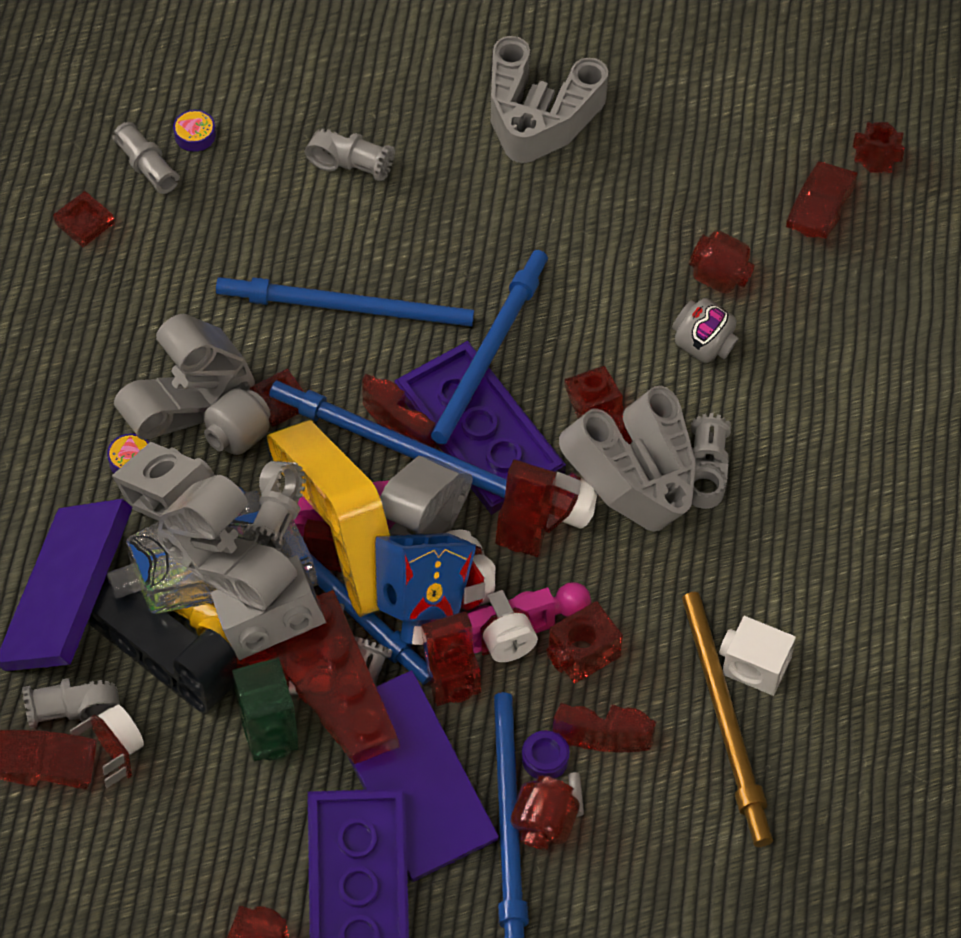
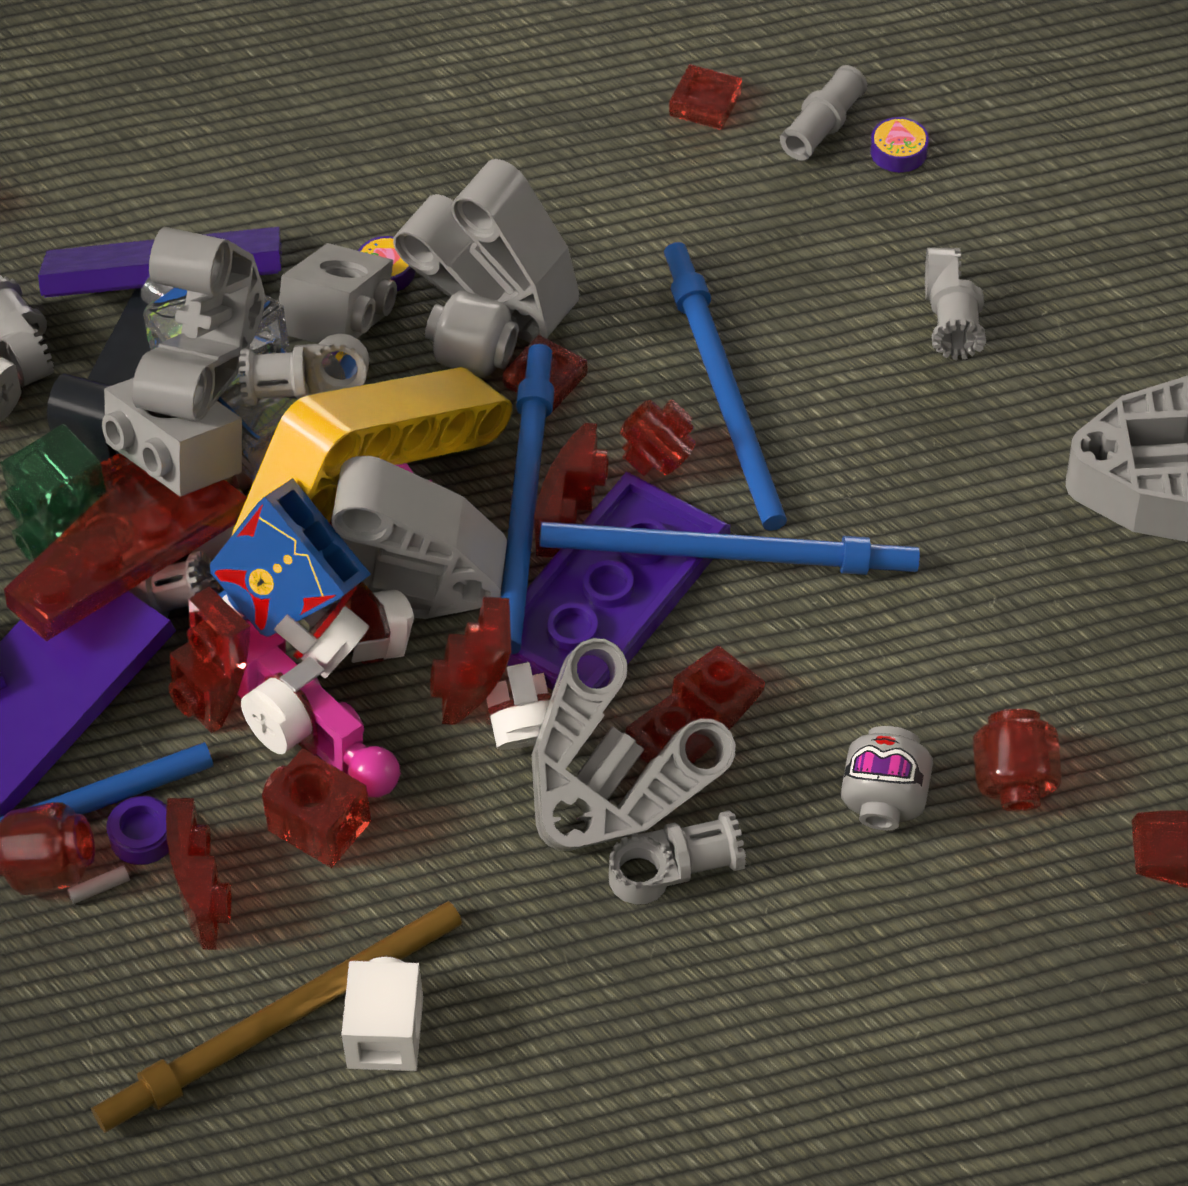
camera: 70 degrees right, 5 degrees down
(382, 349) = (657, 437): none -> clear red gear

